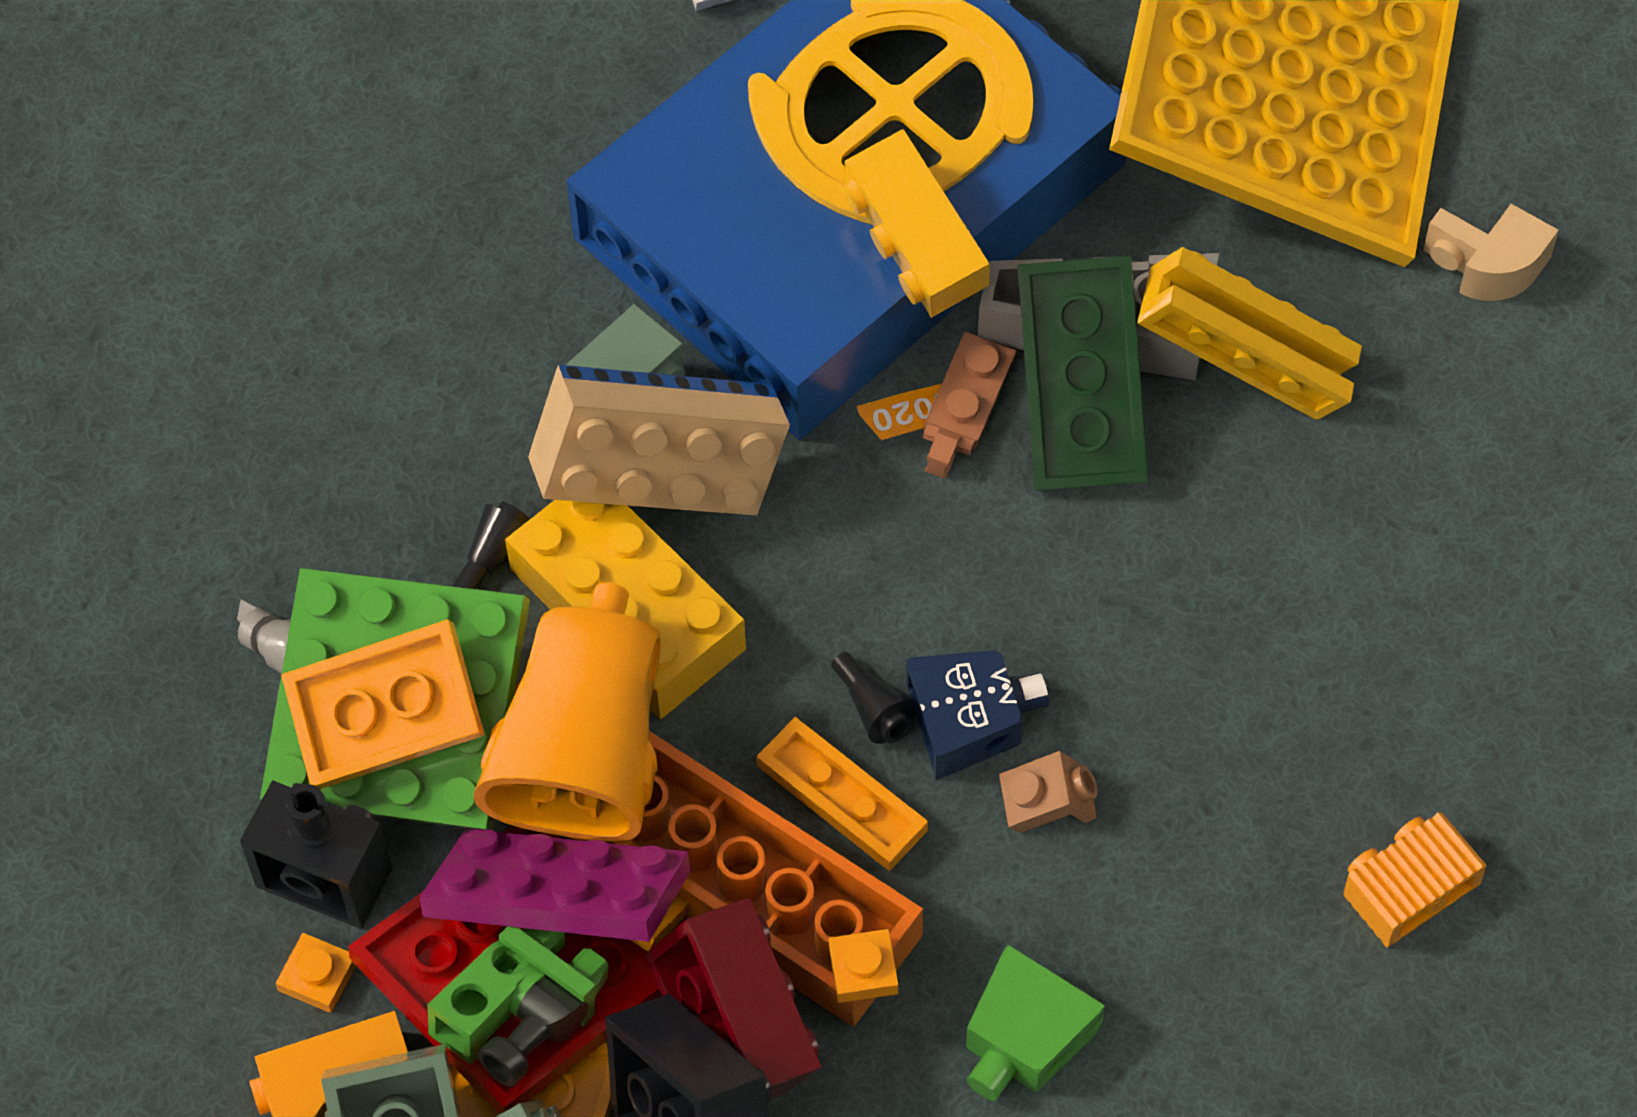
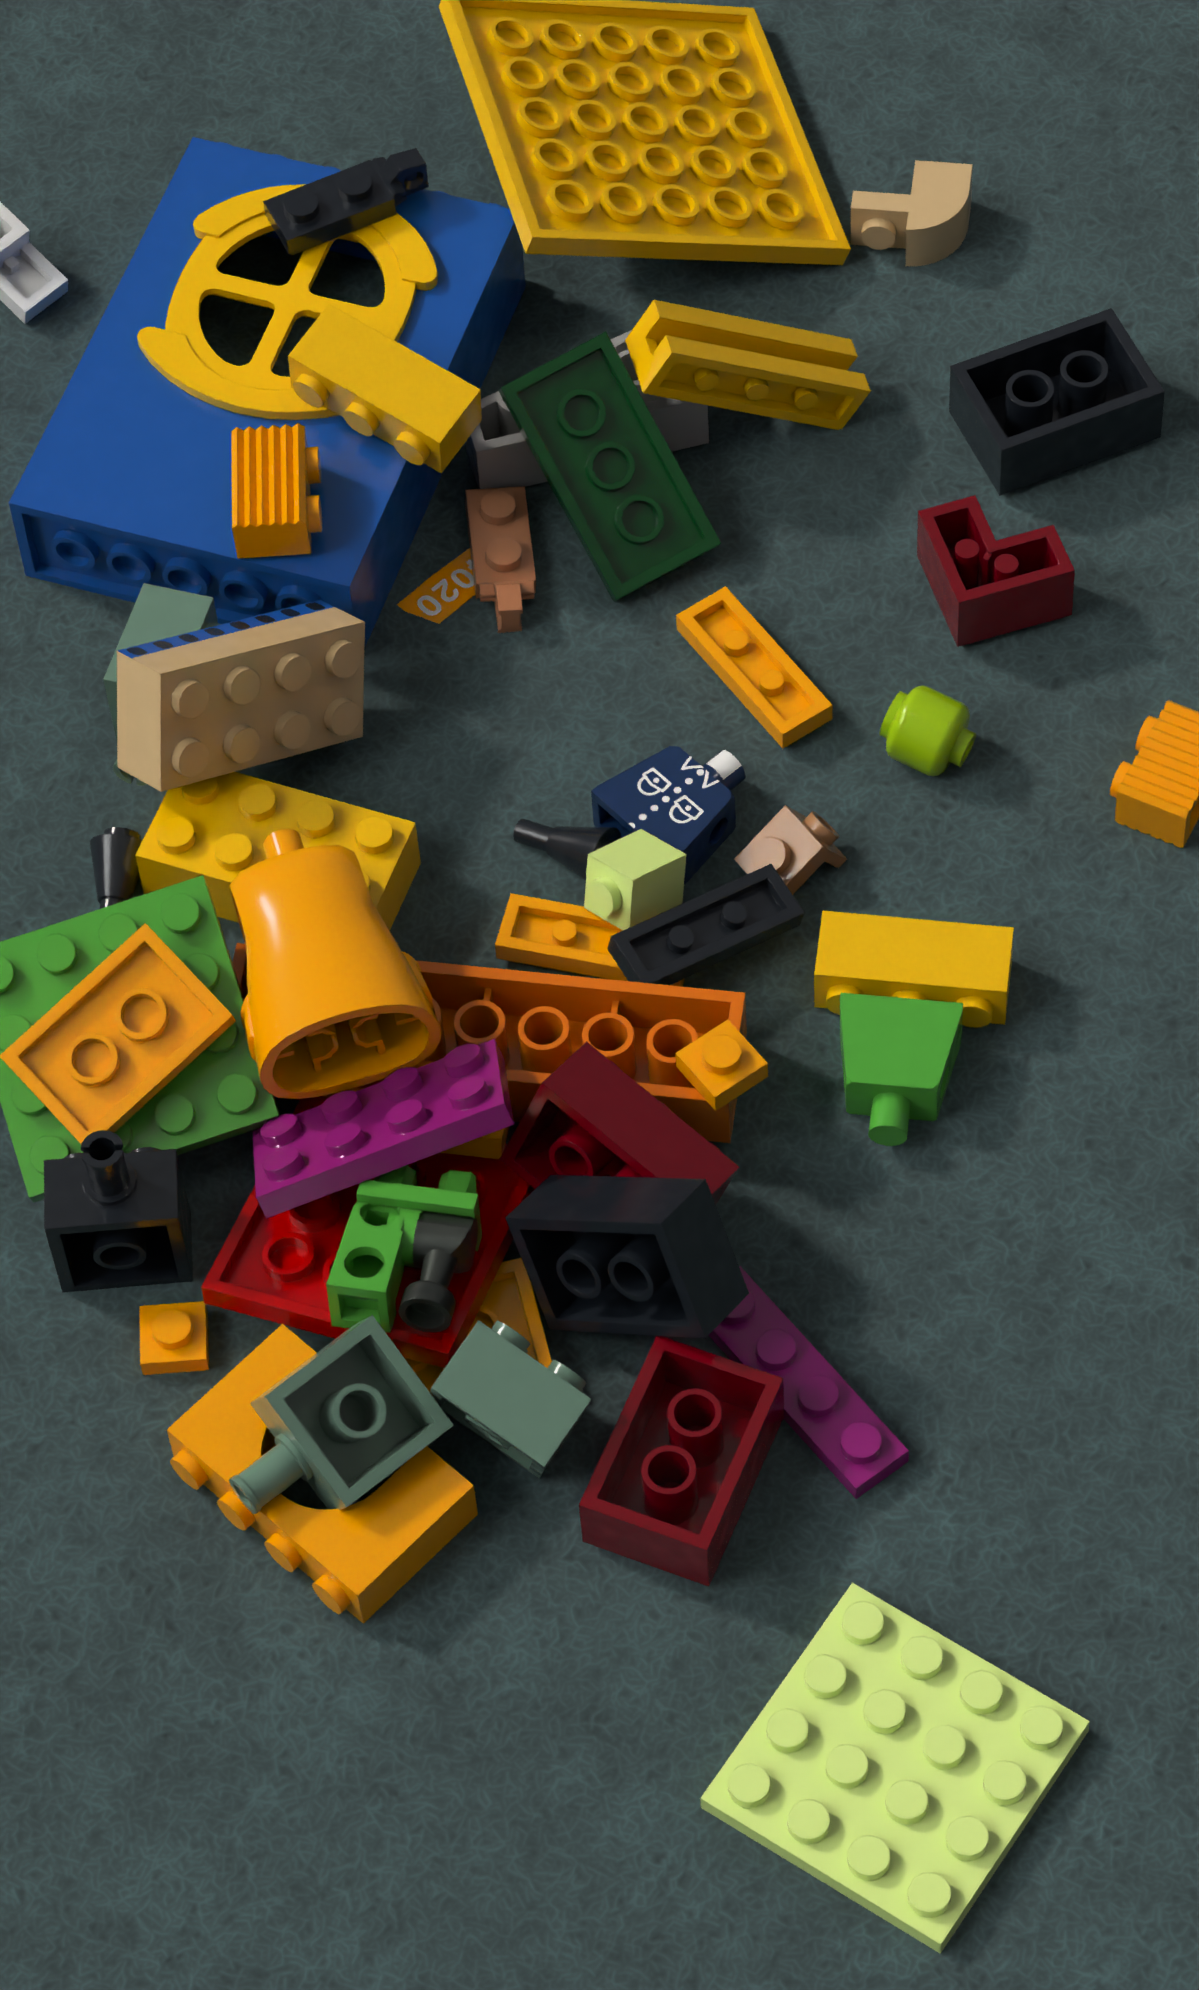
camera: 25 degrees left, 5 degrees down
(774, 274) = (273, 491): none -> light orange brick
(895, 758) = (634, 879): none -> yellowish green brick
(930, 832) = (707, 929): none -> black plate
(985, 32) = (345, 200): none -> black hinge
(1090, 948) = (915, 962): none -> yellow brick
(1114, 607) = (754, 667): none -> light orange plate
(1223, 738) = (927, 730): none -> lime head
(1356, 632) = (987, 582): none -> dark red brick
(1506, 485) = (1056, 401): none -> black brick

